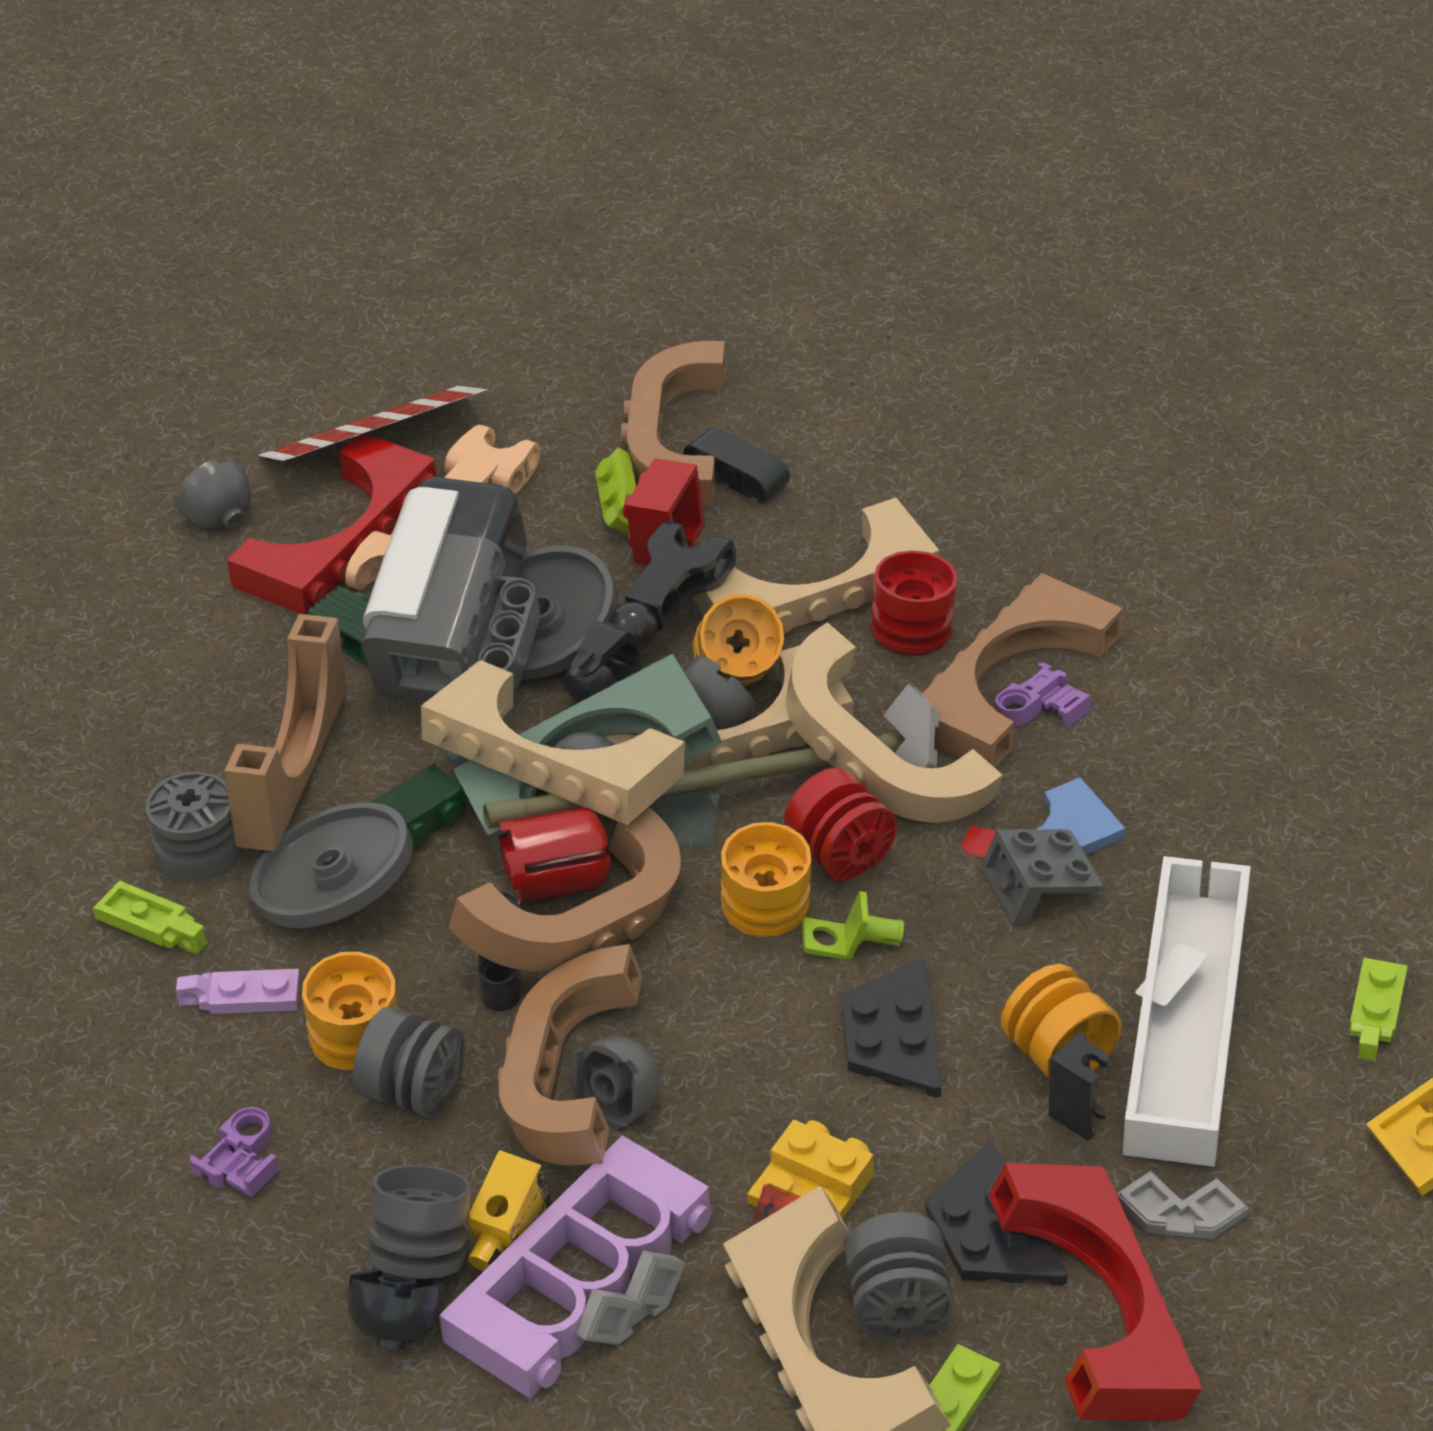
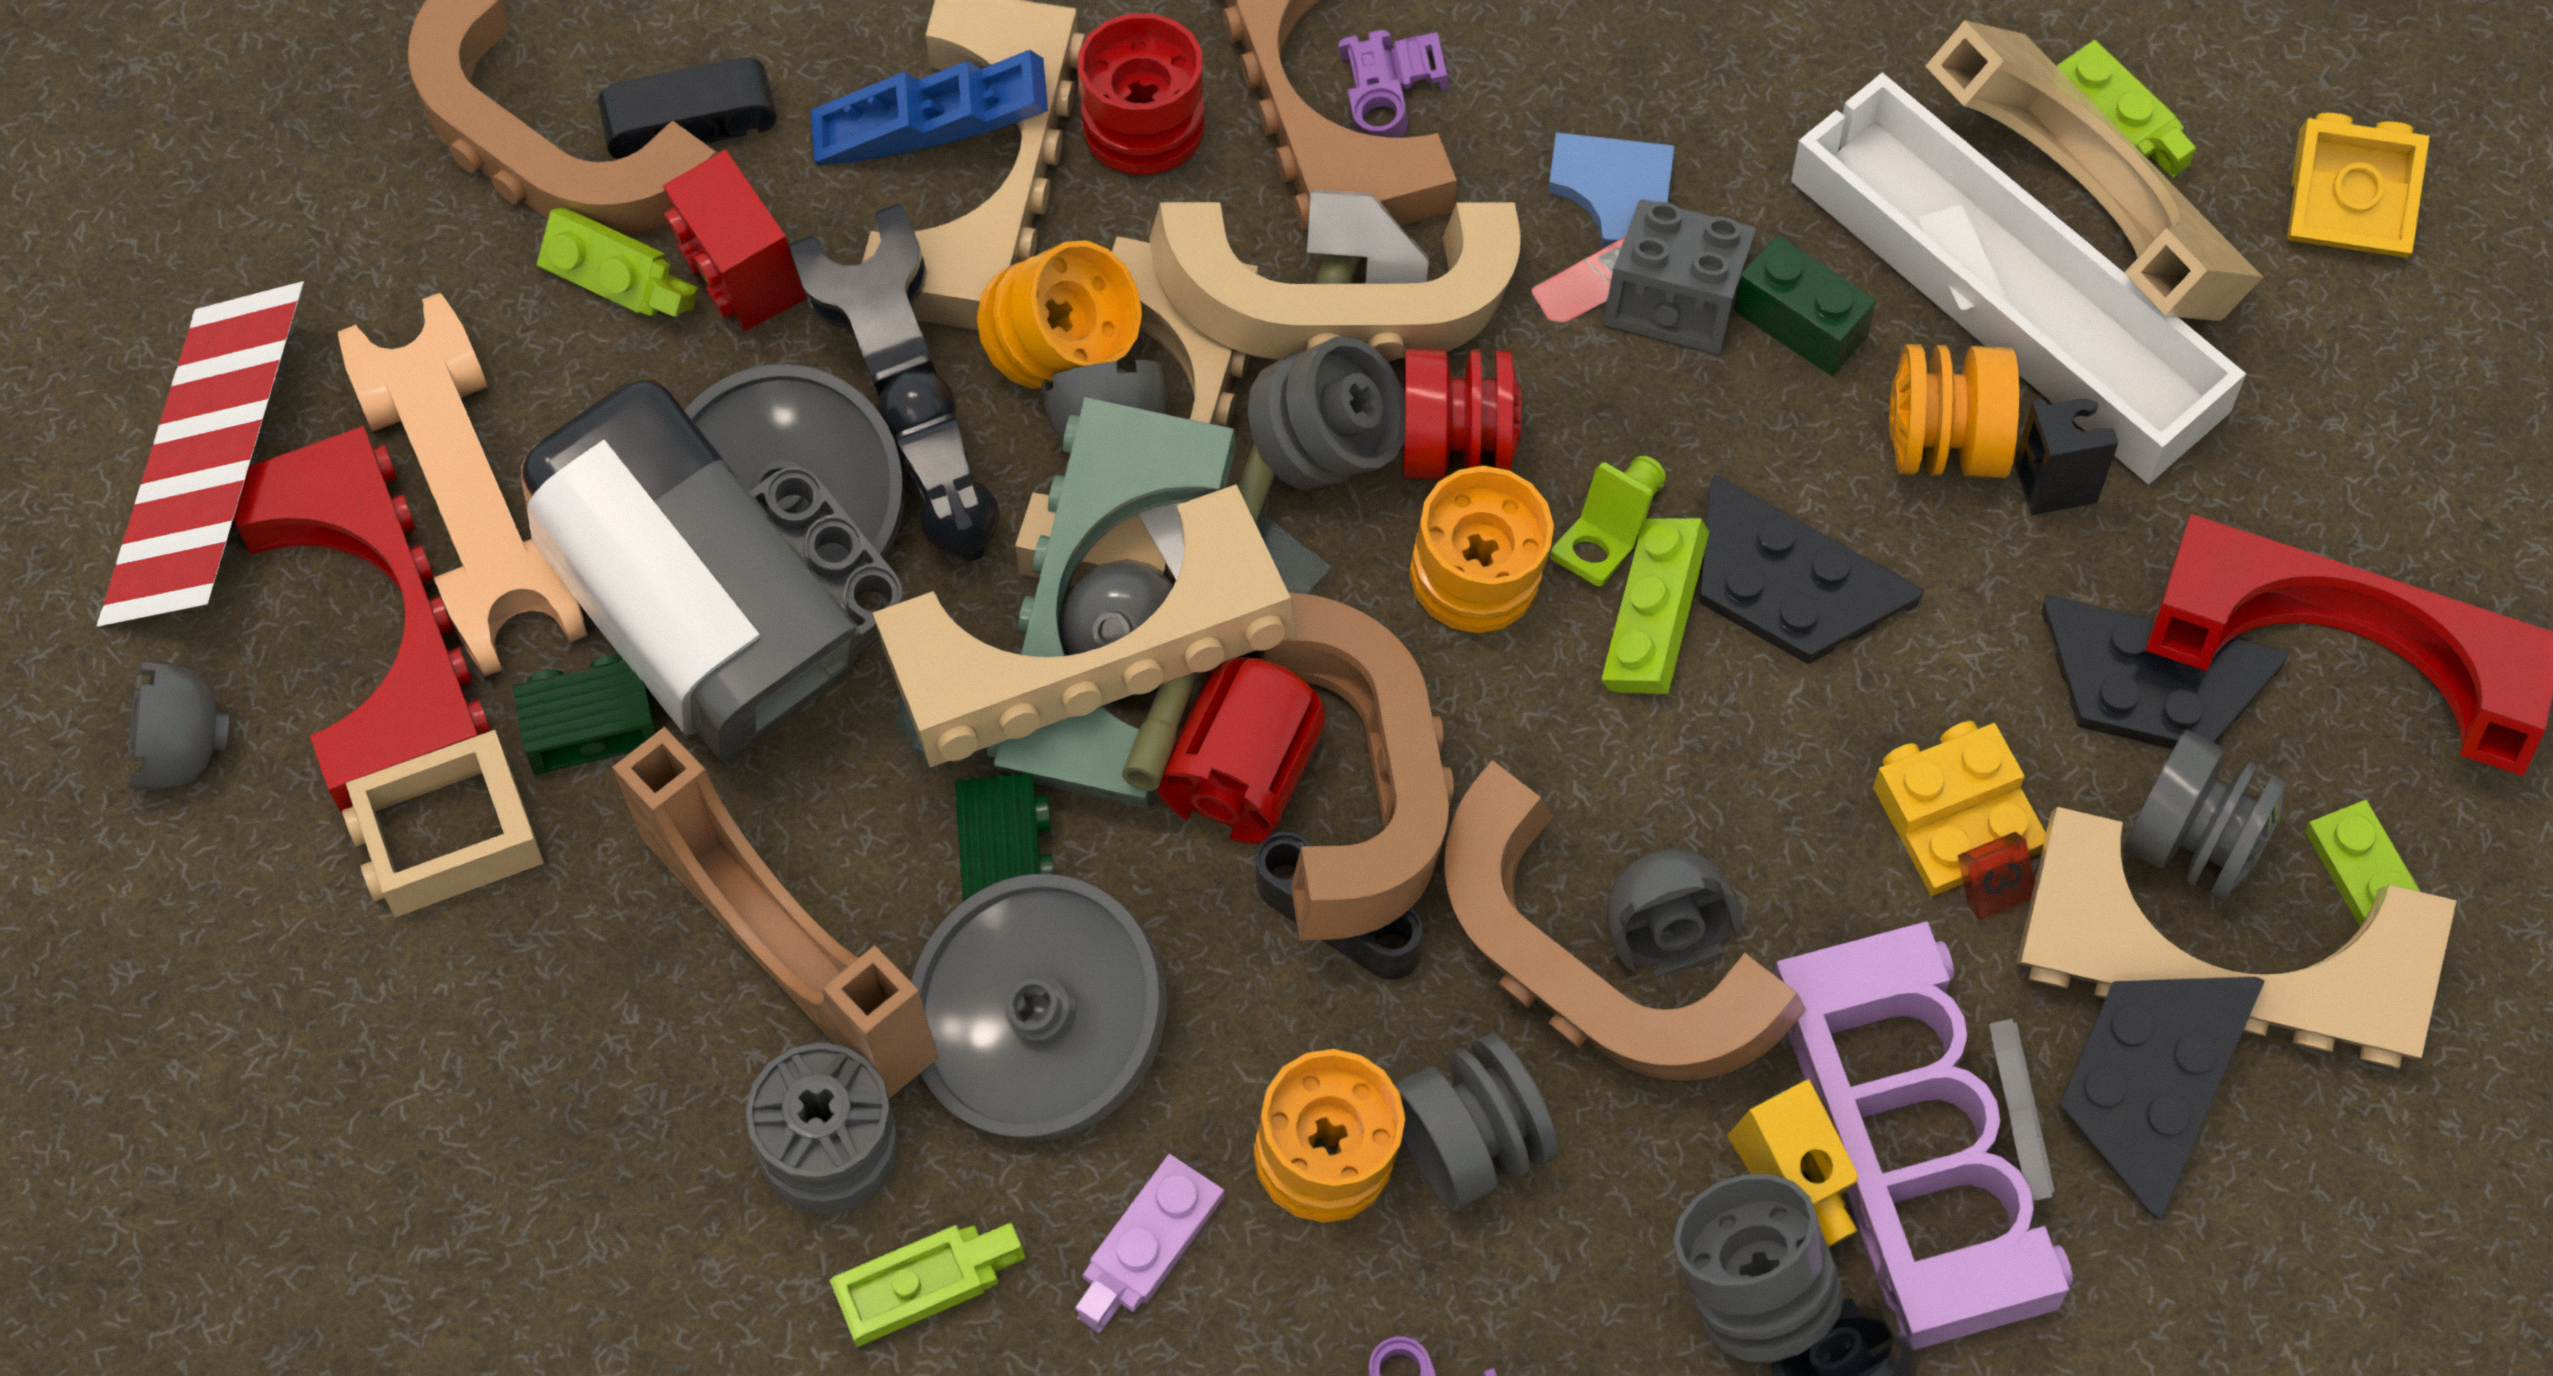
camera: 55 degrees left, 20 degrees up
(257, 643) = (458, 870): none -> tan window
(706, 1347) = (2155, 1074): none -> black wing
(759, 764) = (1327, 414): none -> dark grey wheel
(814, 979) = (1655, 606): none -> lime plate
(822, 540) = (928, 112): none -> blue slope
(1073, 928) = (1804, 305): none -> dark green brick
(1163, 1212) = (2289, 473): light grey tile -> none
(1325, 941) = (2180, 255): none -> tan arch

